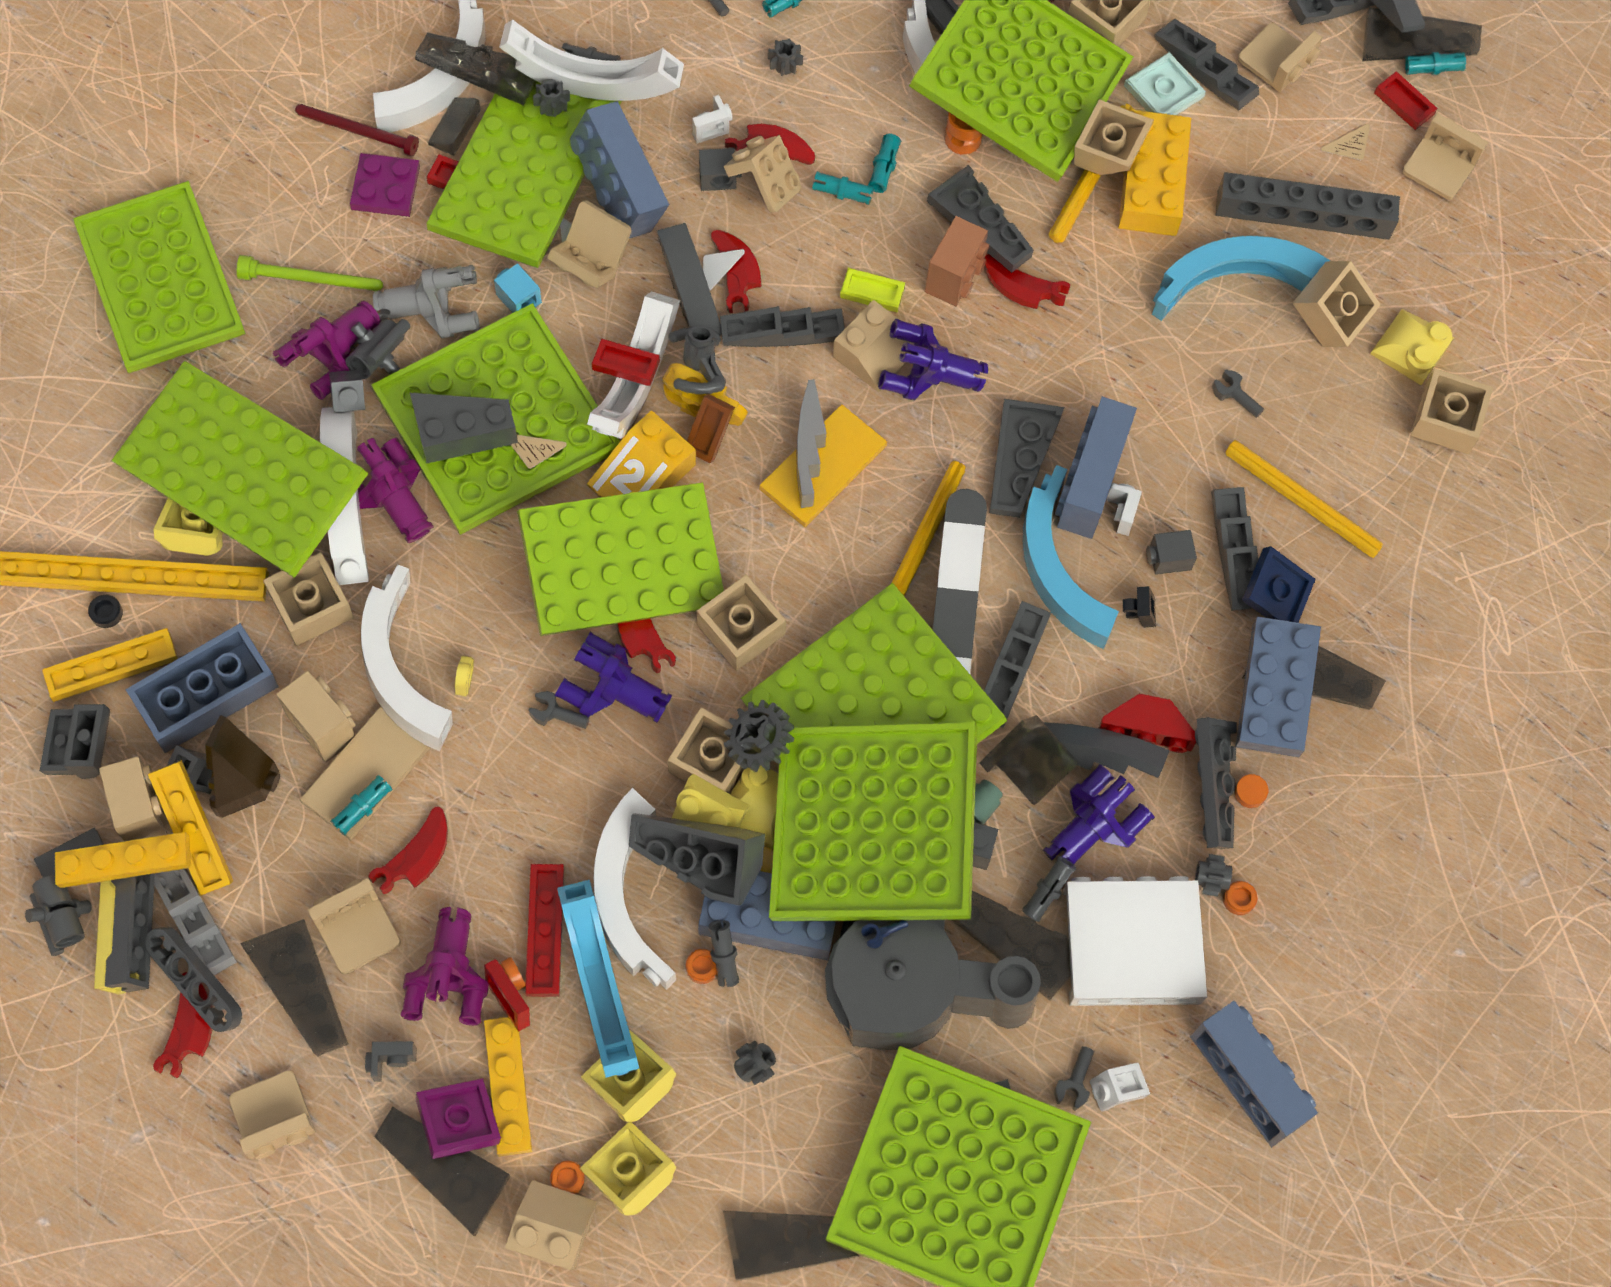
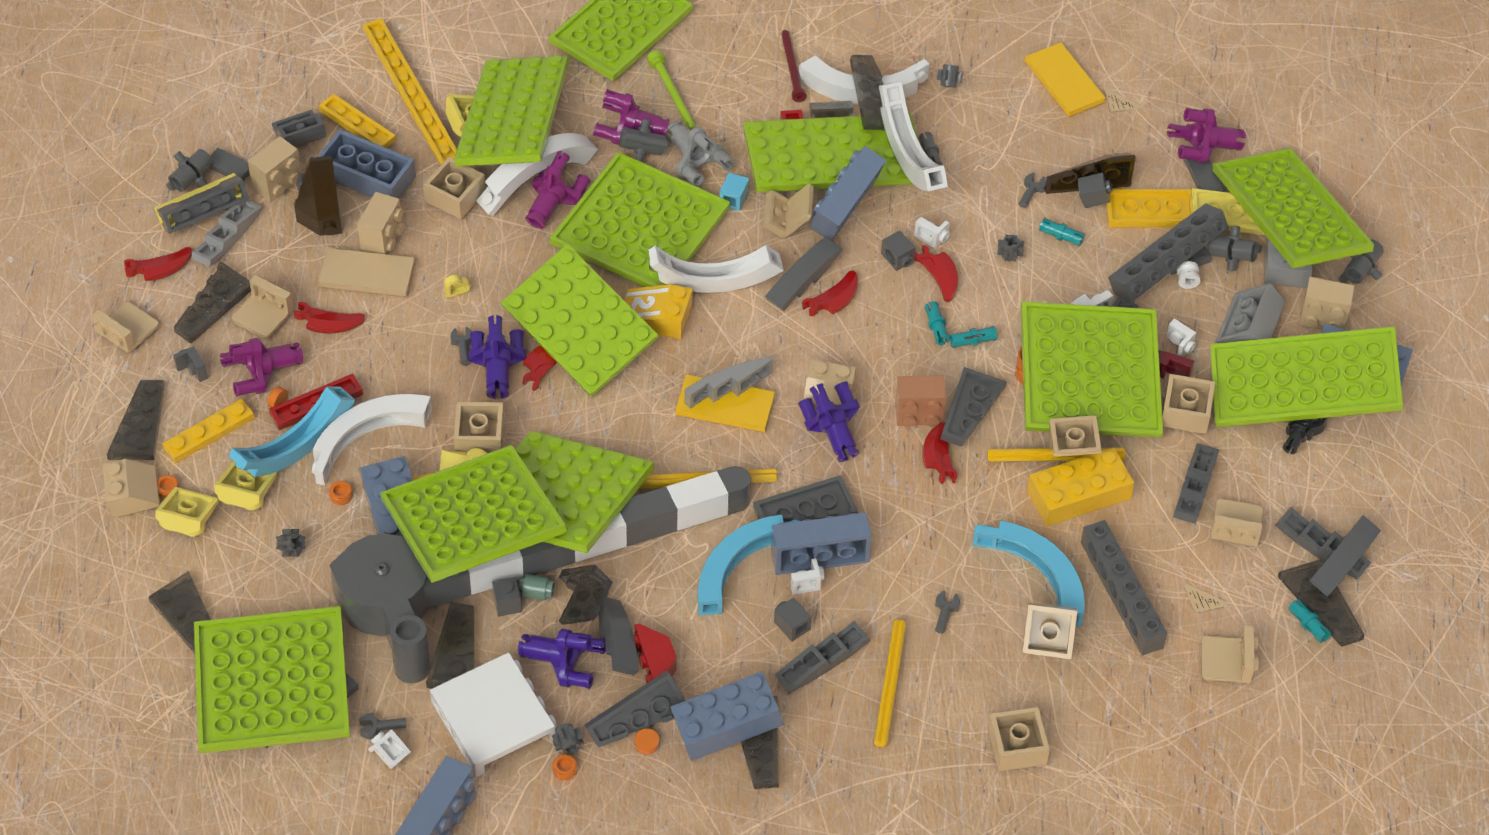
camera: 65 degrees right, 15 degrees down
(105, 611) = (390, 106): black tile -> none
(122, 860) = (233, 176): yellow plate -> none
(187, 815) = (274, 200): yellow plate -> none
(196, 974) = (185, 248): dark grey beam -> none
(347, 391) = (601, 138): brick -> none
(361, 805) = (339, 274): teal pin -> none
(385, 185) = (763, 97): magenta plate -> none
(402, 703) = (437, 238): white arch -> none
(457, 1118) = (171, 410): magenta plate -> none
(462, 424) = (614, 201): dark grey wedge -> none
(507, 995) = (259, 399): red tile -> none
(535, 450) = (629, 248): tan sticker -> none
(551, 97) = (877, 138): dark grey gear -> none
(625, 362) = (717, 261): red tile -> none
(691, 402) = (726, 315): yellow piece -> none
(699, 355) = (751, 291): dark grey piece -> none
(708, 804) = (435, 442): light yellow slope -> none
(710, 427) = (703, 326): dark orange tile -> none
(710, 856) = (405, 446): dark grey wedge -> none
(718, 264) = (829, 283): white sticker -> none
(723, 953) = (350, 491): dark grey pin -> none
(741, 622) = (579, 403): tan brick -> none
(759, 736) = (496, 433): dark grey gear -> none
(770, 167) = (910, 273): tan bracket -> none
(776, 328) = (805, 332): dark grey slope -> none
(866, 287) = (873, 373): neon yellow tile -> none
(881, 932) = (396, 547): dark blue hand -> none
(1016, 656) = (649, 566): dark grey slope -> none
(1049, 889) = (499, 647): dark grey pin -> none
(1142, 607) = (740, 619): black tile -> none
(1165, 87) = (1158, 468): light aqua tile -> none
(1278, 587) = (804, 690): dark blue plate -> none
(1405, 100) = (1266, 616): red tile -> none
(1413, 345) = (1062, 702): light yellow slope -> none

